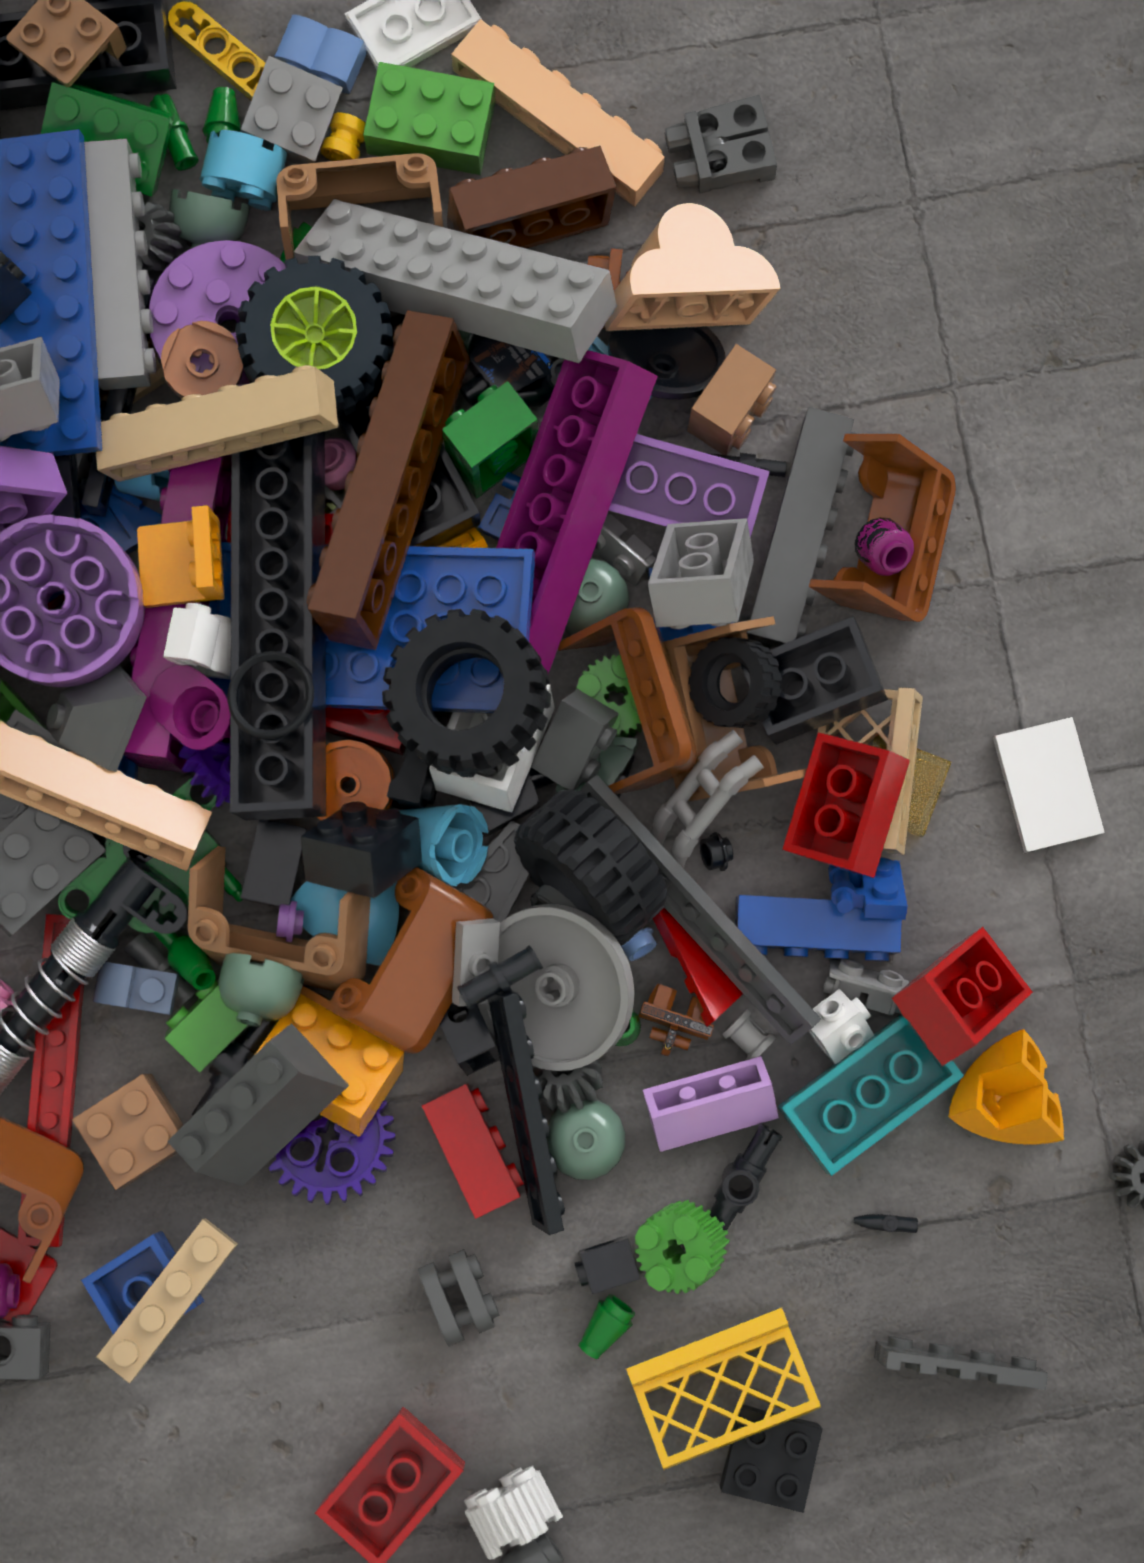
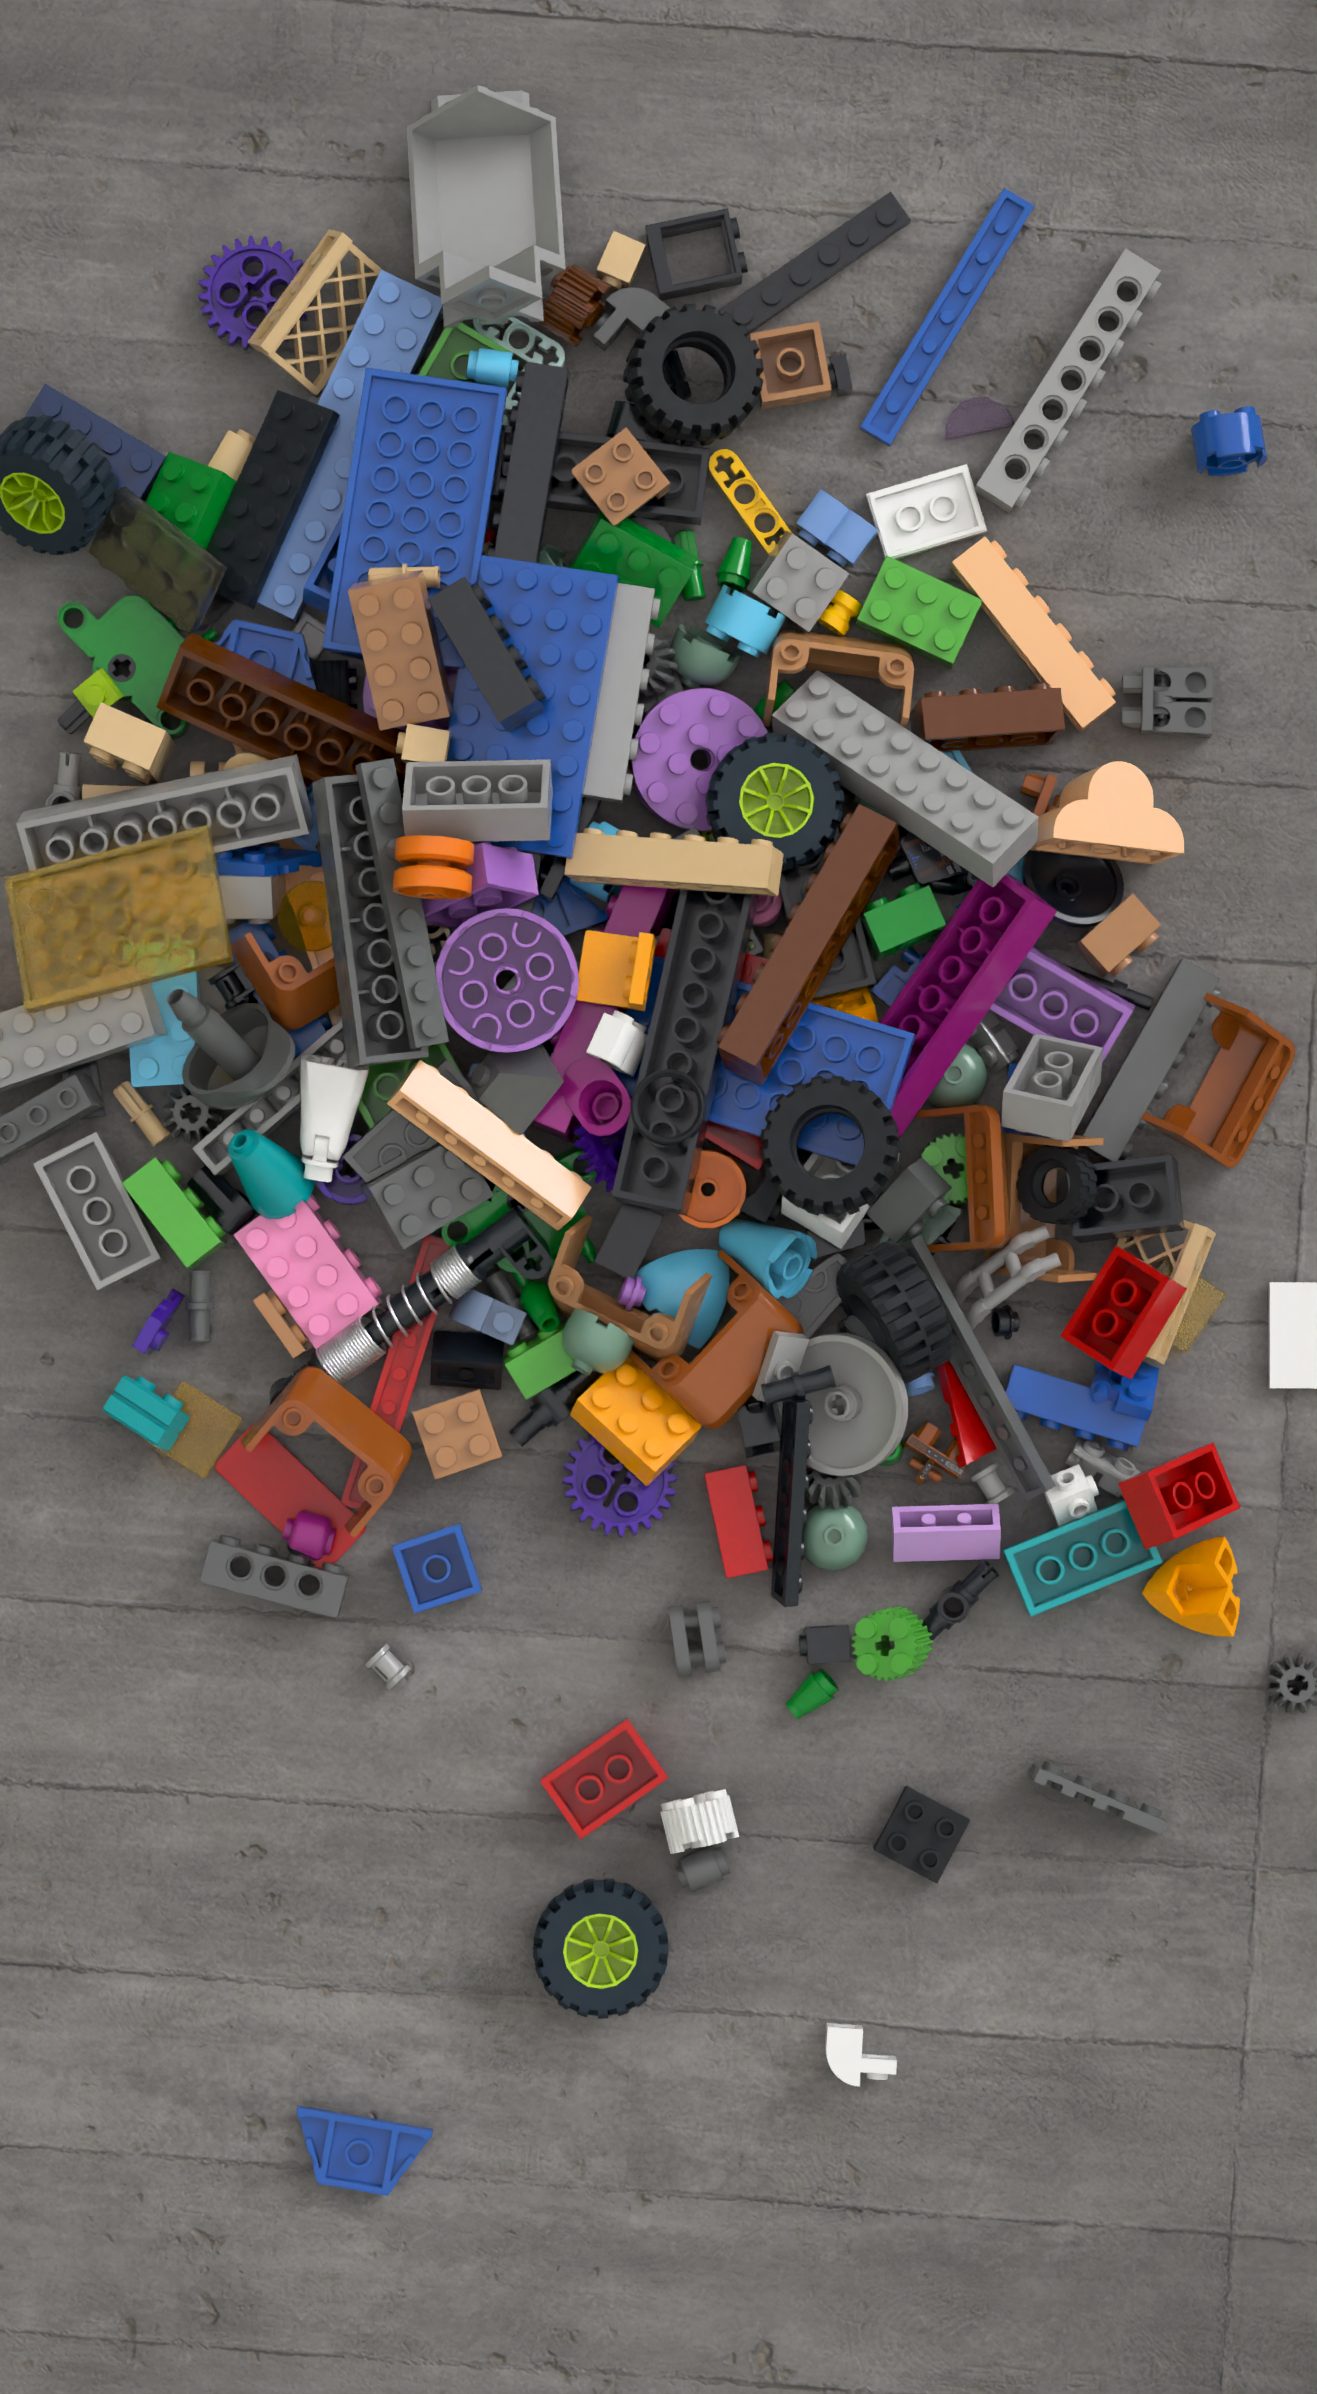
camera: 10 degrees right, 5 degrees up
(114, 1418) = (387, 1666): none -> light grey bush
(125, 1045) = (466, 1360): none -> black panel
(167, 1300) = (460, 1580): tan plate -> none
(193, 342) = (667, 777): nougat plate -> none
(259, 1109) = (572, 1444): dark grey slope -> none
(361, 849) = (710, 1251): black brick -> none
(711, 1352) = (894, 1736): yellow fence -> none
(884, 546) = (1216, 1096): magenta head -> none
(888, 1223) = (1068, 1668): black helmet -> none

